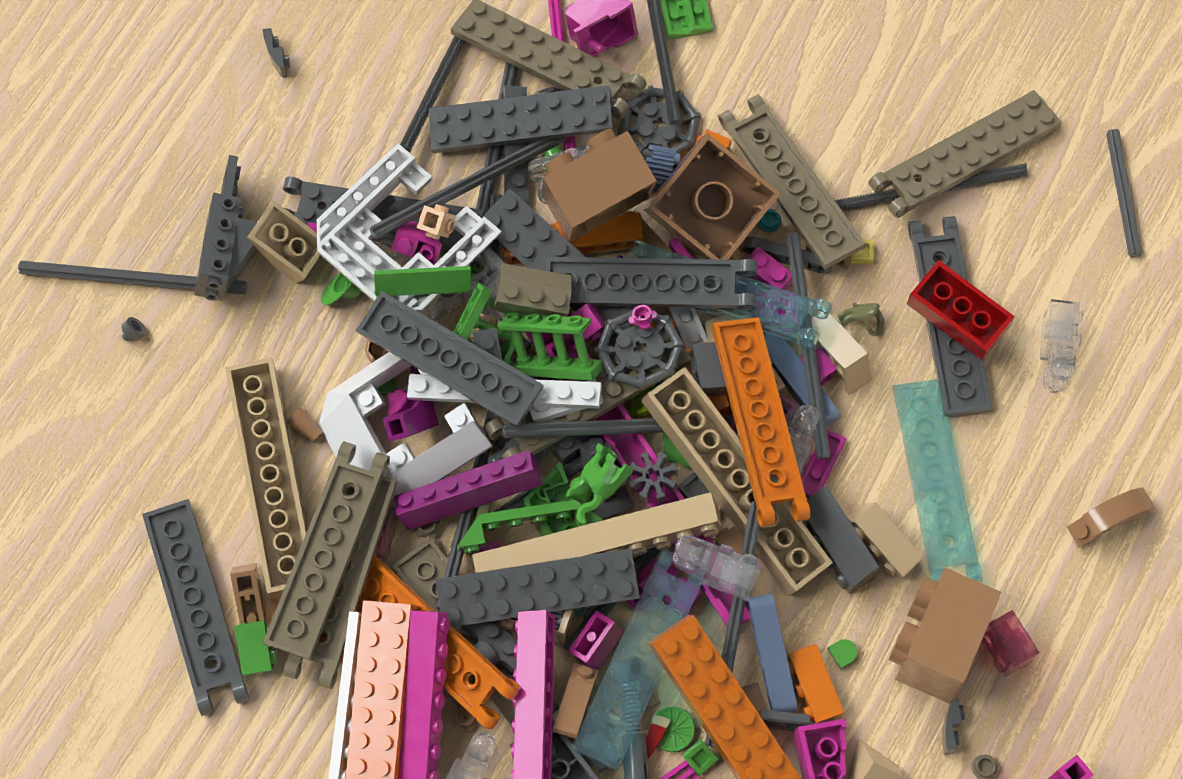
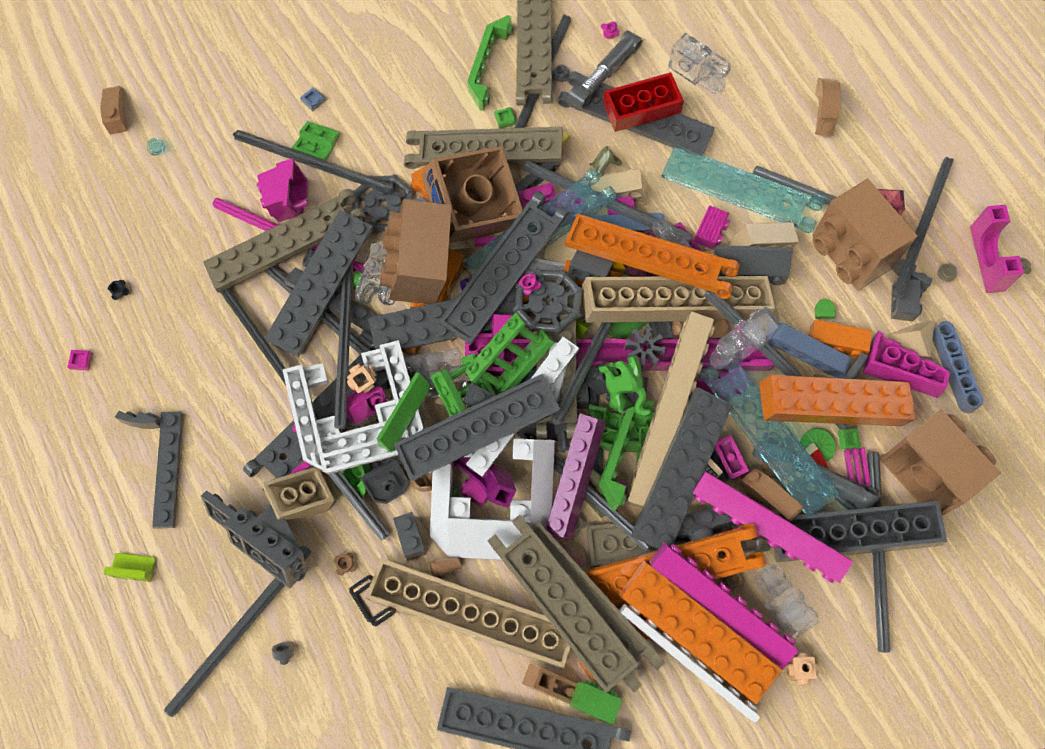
camera: 60 degrees left, 0 degrees up
(132, 144) = (131, 567): none -> lime panel
(214, 388) = (369, 618): none -> black piece
(245, 111) = (167, 470): none -> dark grey plate
(250, 325) = (339, 560): none -> medium nougat plate
(314, 373) = (409, 536): none -> dark grey brick
(316, 308) = (359, 504): none -> dark grey axle
(348, 313) = (385, 481): none -> dark grey piece
(532, 291) = (463, 342): dark tan slope -> none
(849, 182) = (505, 117): none -> bright green tile
(860, 475) = (711, 227): none -> dark pink brick
(914, 735) = (909, 306): none -> dark grey brick
(947, 200) = (560, 69): none -> dark grey plate
(958, 110) = (497, 29): none -> bright green slope
(981, 539) = (775, 177): none -> dark grey axle
(1020, 705) = (922, 229): none -> dark grey axle
(1037, 255) = (611, 62): none -> dark grey piece
(1043, 231) = (610, 34): none -> dark pink plate

